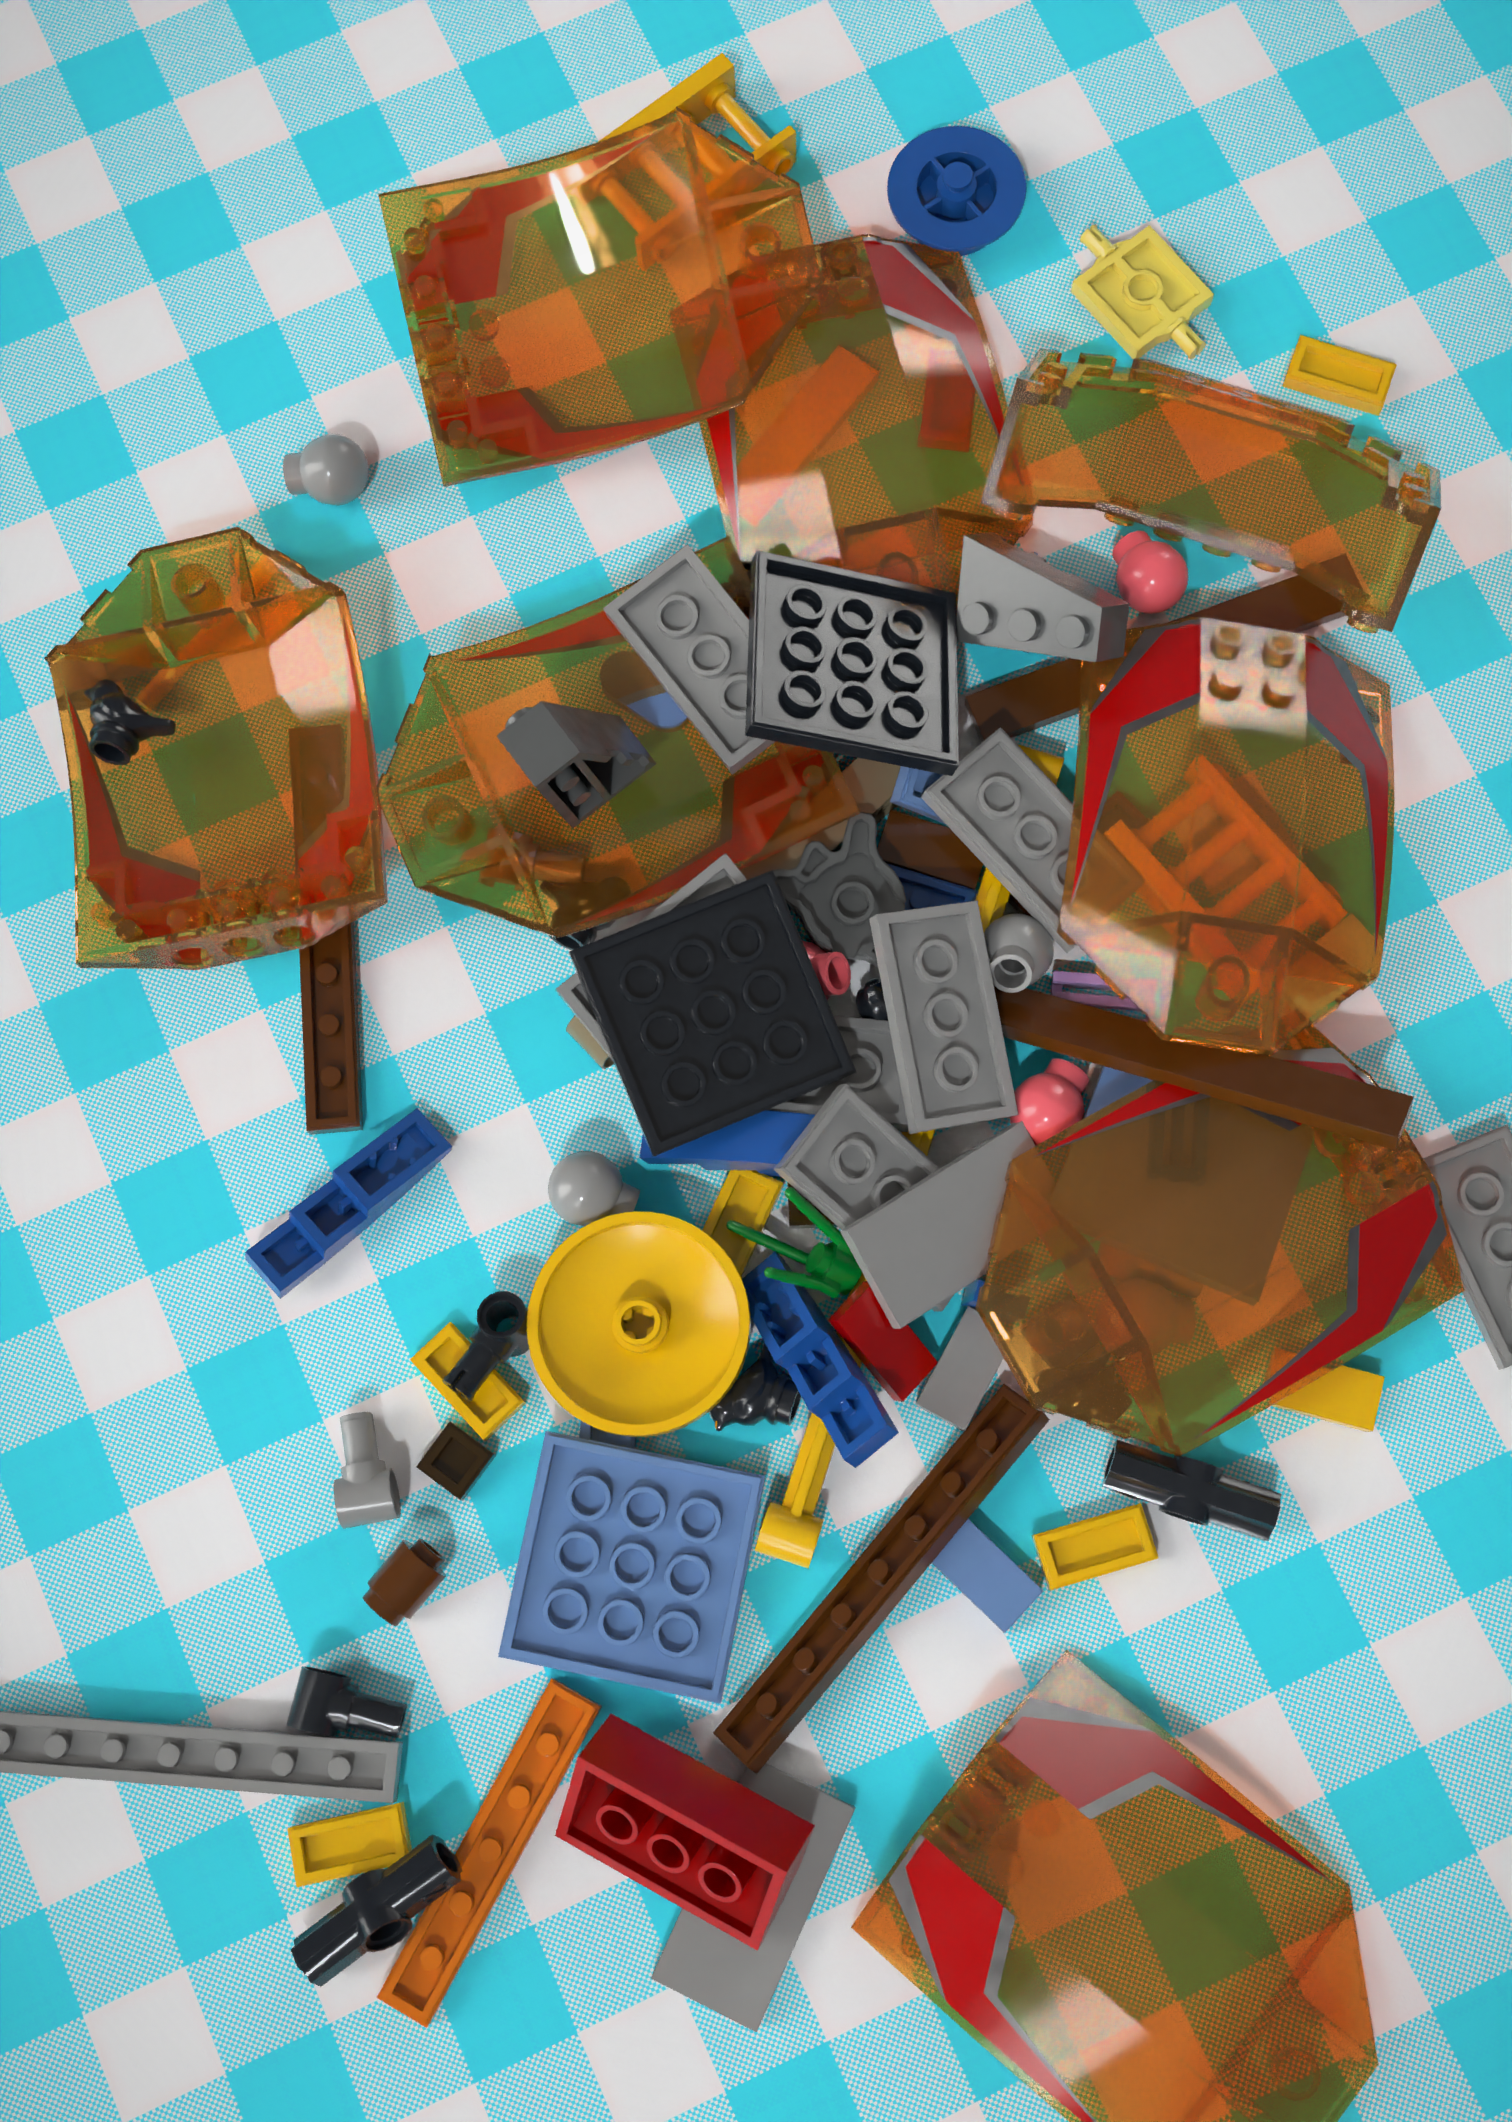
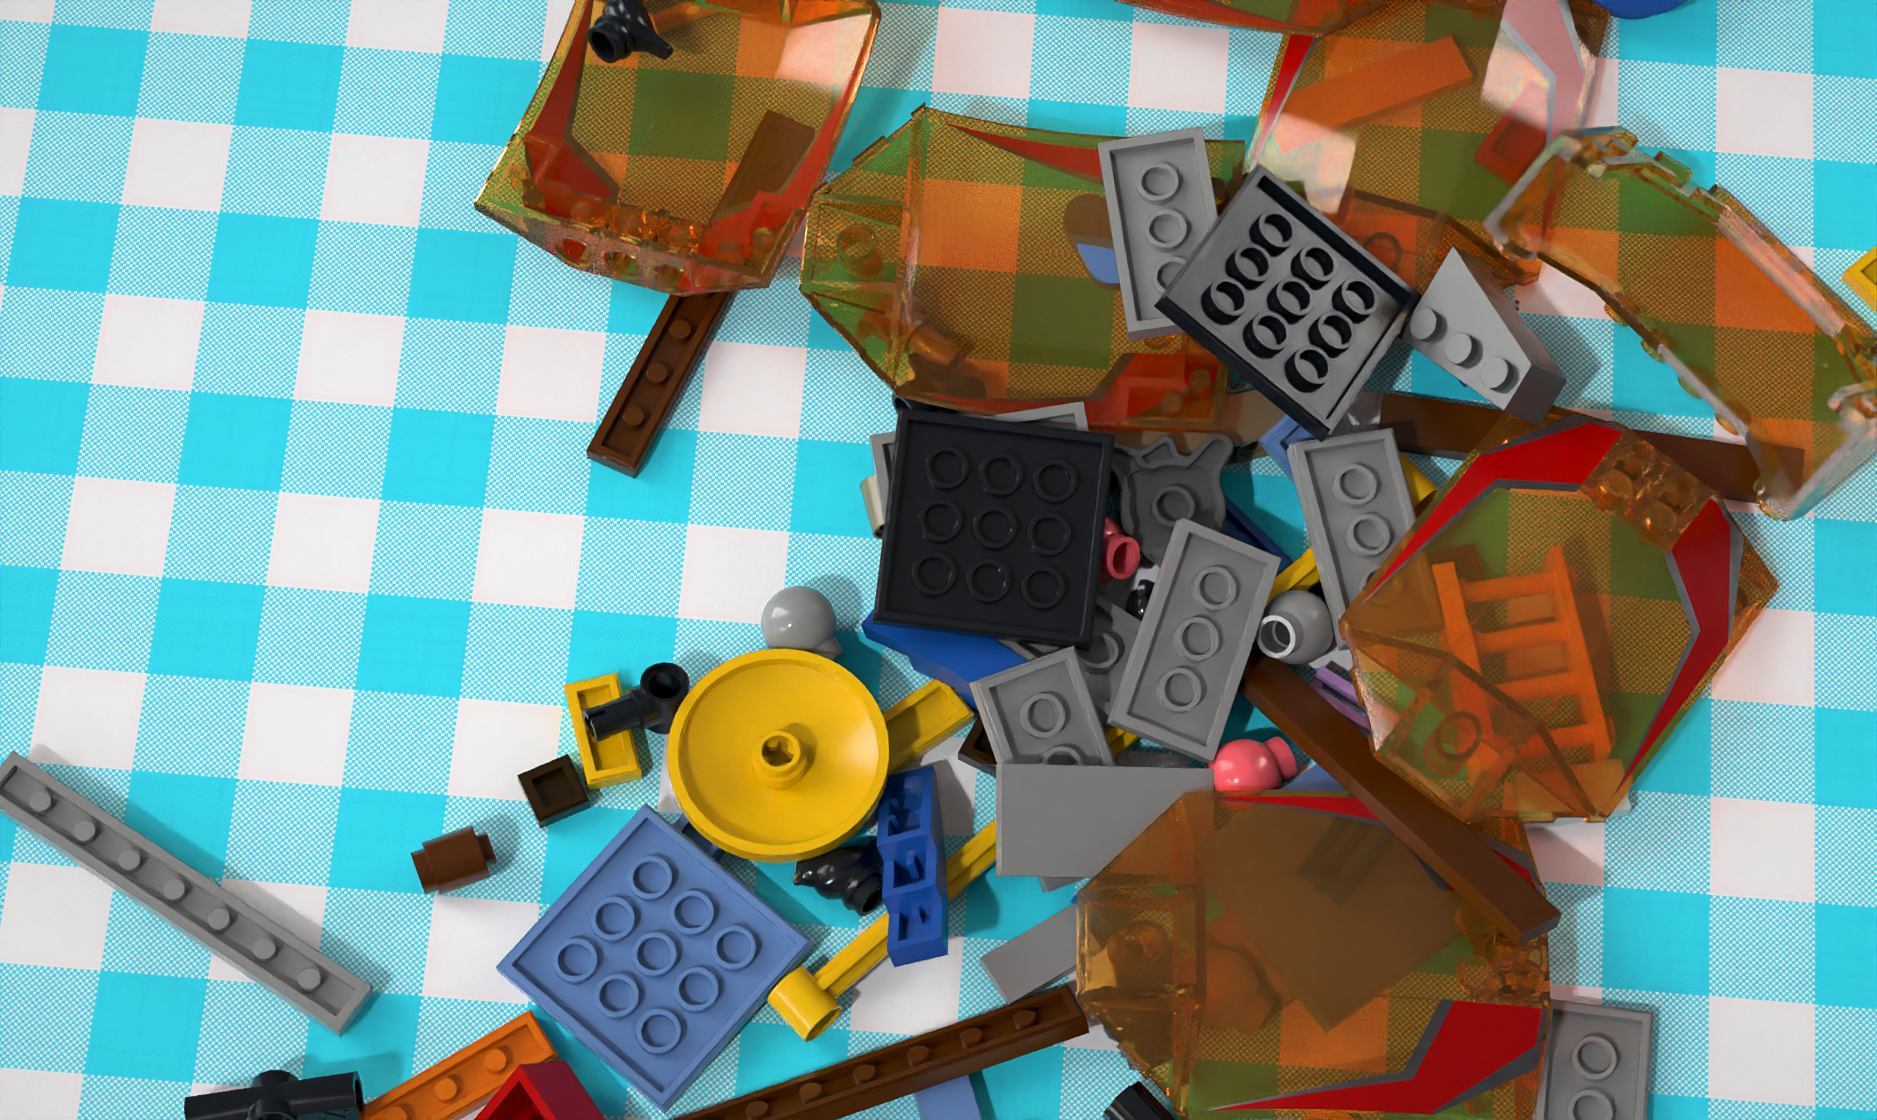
camera: 20 degrees right, 10 degrees down
(329, 1703) = (332, 925): black pin -> none
(348, 1203) = (589, 529): blue slope -> none
(349, 1844) = (268, 1043): yellow tile -> none
(367, 1489) = (466, 767): light grey pin -> none
(574, 756) = (998, 251): dark grey wedge -> none
(830, 1264) = (970, 801): green plant -> none
(890, 1354) = (981, 899): red tile -> none
(928, 850) = (1270, 504): reddish brown tile -> none
(1142, 292) = (1756, 130): light yellow plate -> none
(1149, 573) = (1612, 373): coral piece -> none

